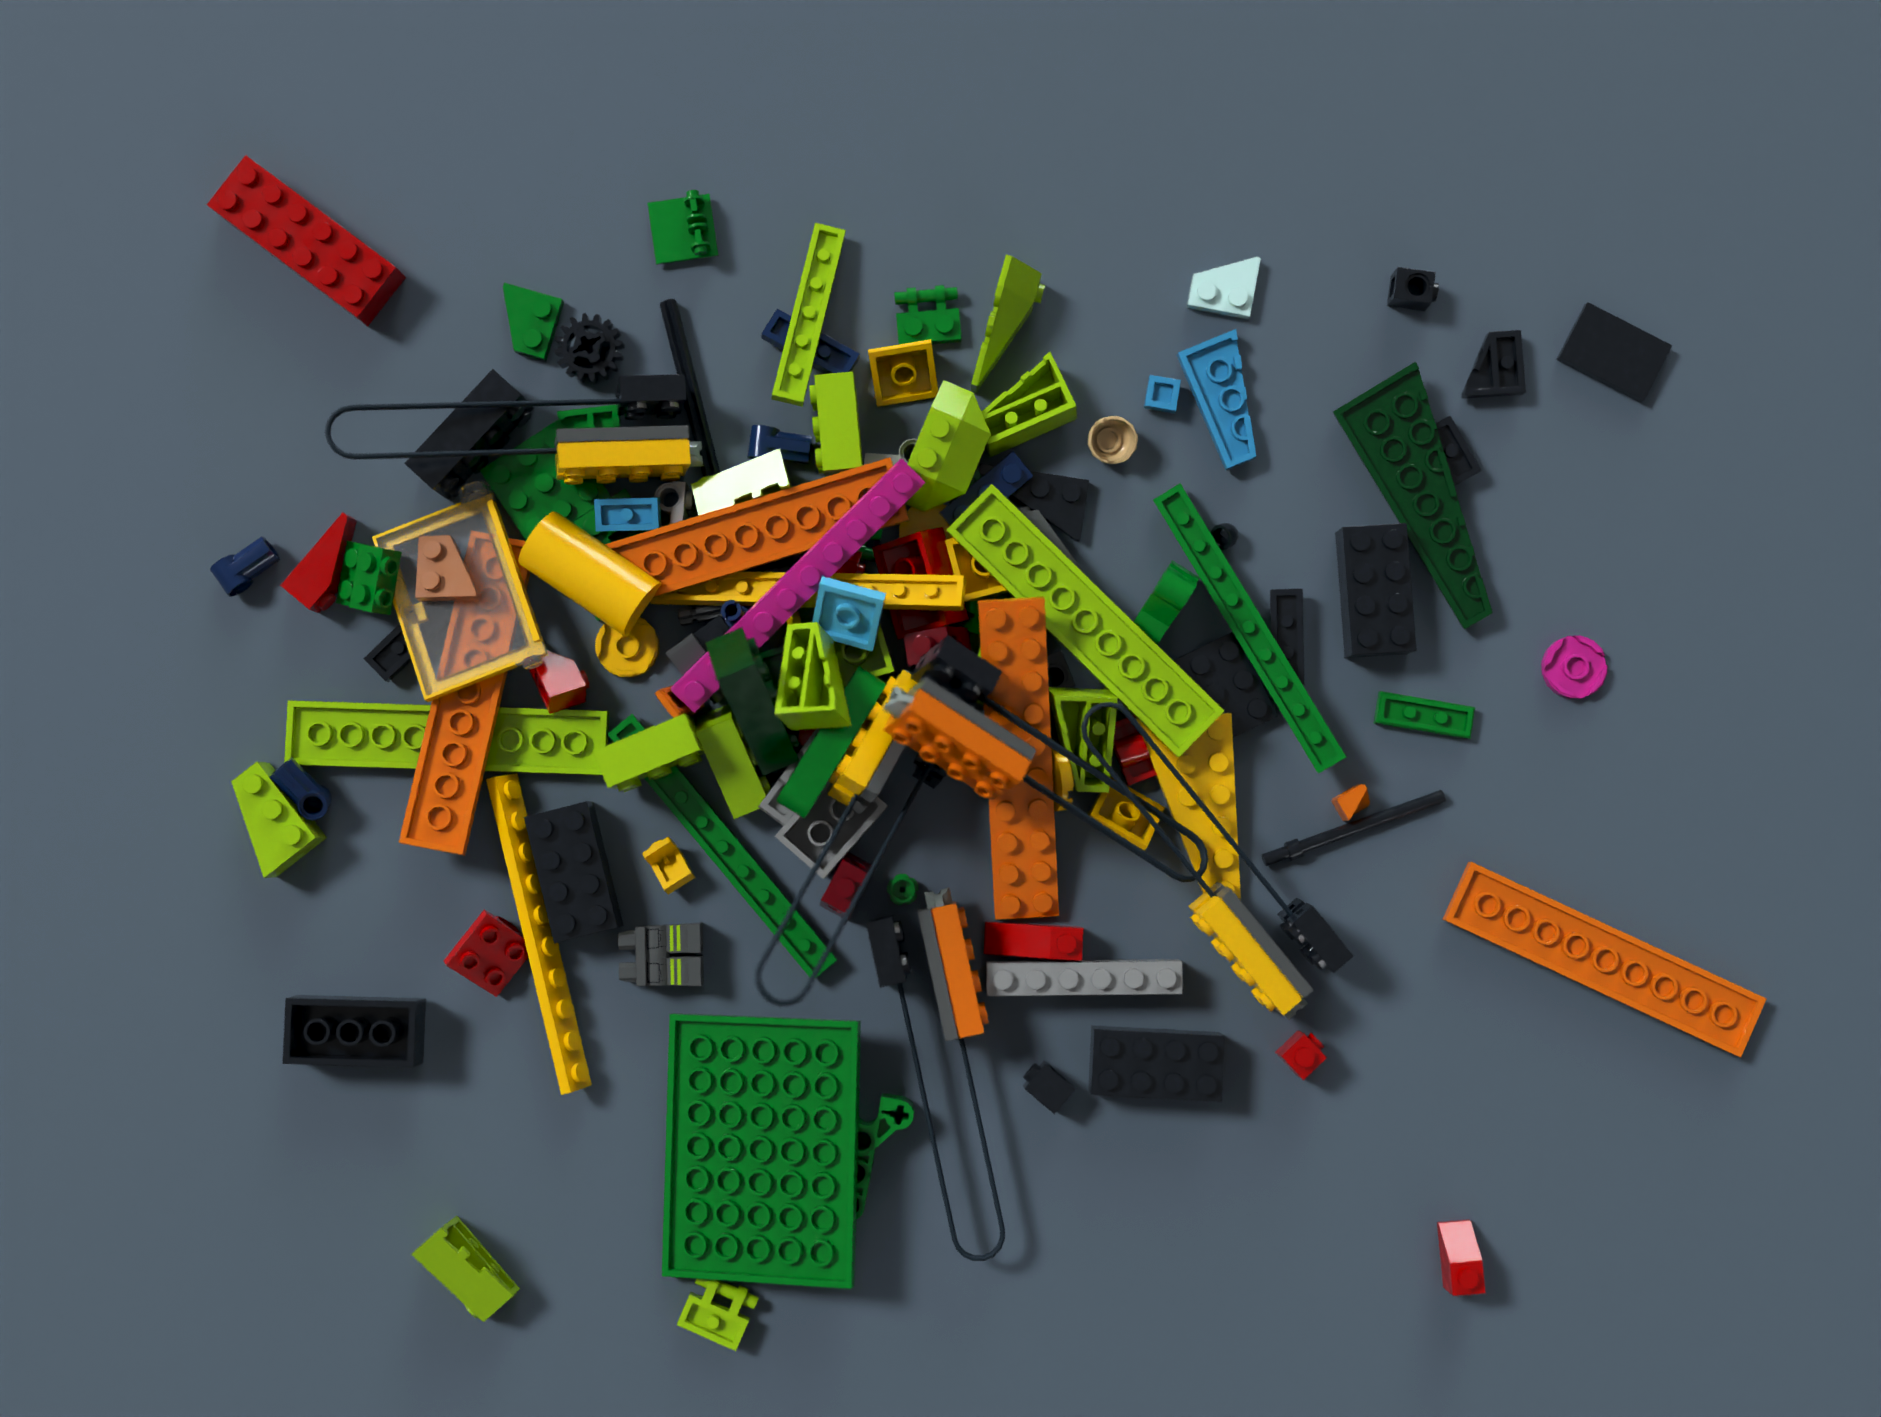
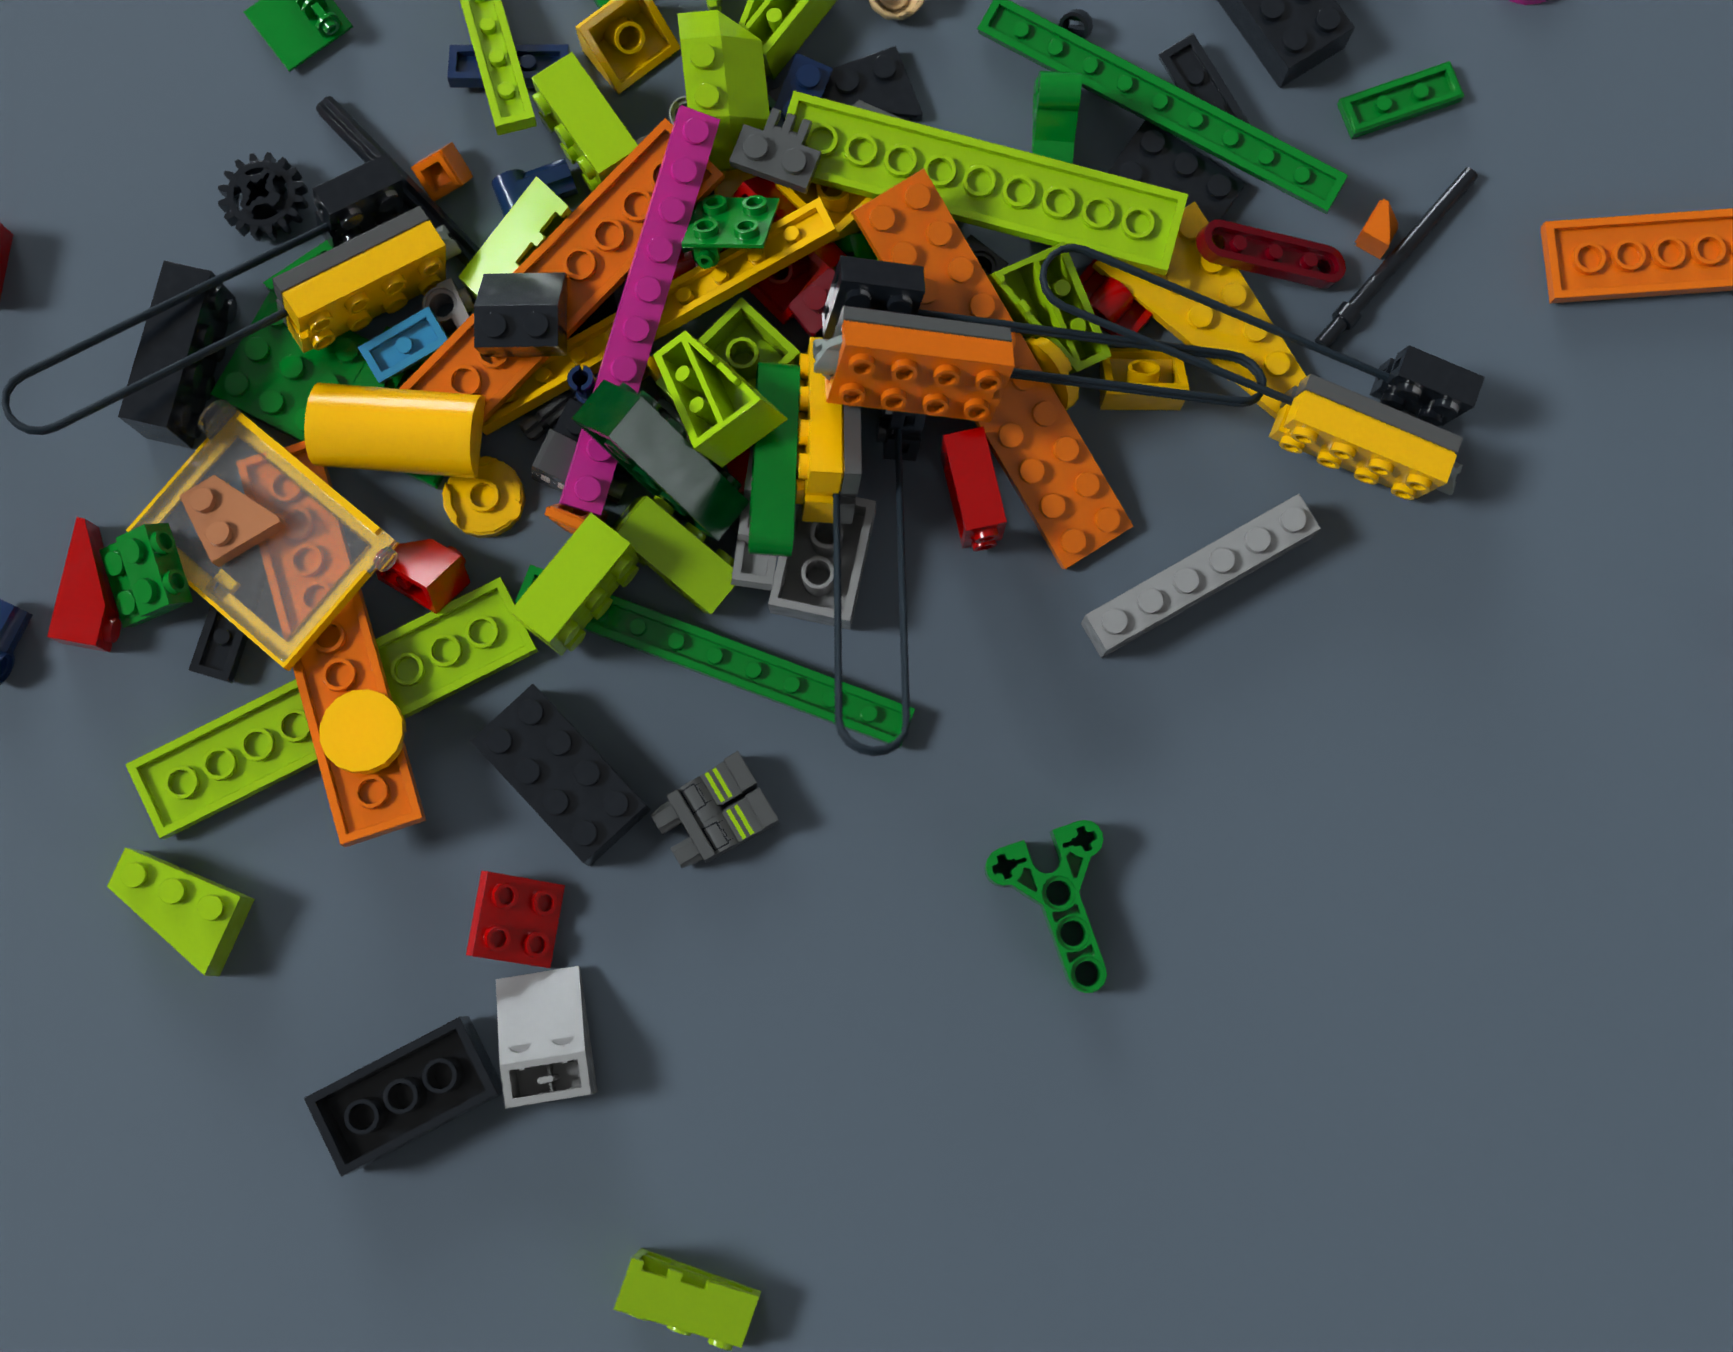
camera: 30 degrees left, 5 degrees down
(299, 786) = (190, 852): dark blue piece -> none
(453, 773) = (362, 731): none -> yellow tile
(466, 1043) = (544, 1037): none -> light grey slope
(531, 320) = (182, 203): green wing -> none
(542, 951) = (560, 867): yellow plate -> none
(668, 864) = (665, 708): yellow bracket -> none
(714, 1320) = (1007, 1196): lime plate -> none
(716, 541) = (521, 315): none -> black slope
(723, 397) = (442, 171): none -> orange slope
(762, 1149) = (951, 967): green plate -> none
(845, 884) = (880, 624): dark red torso -> none
(849, 612) = (715, 305): medium azure plate -> none
(891, 560) = (729, 223): none -> green hinge
(909, 895) = (943, 583): green plate -> none
(955, 523) = (777, 152): none -> dark grey hinge
(956, 1000) = (1073, 674): piece -> none
(960, 833) = (973, 488): none -> red window
(1034, 940) = (1122, 566): red slope -> none
(1047, 1086) = (1230, 718): black brick -> none
(1156, 1063) = (1334, 624): black brick -> none
(1262, 780) = (1270, 254): none -> dark red plate
(1302, 1054) = (1487, 527): red brick -> none

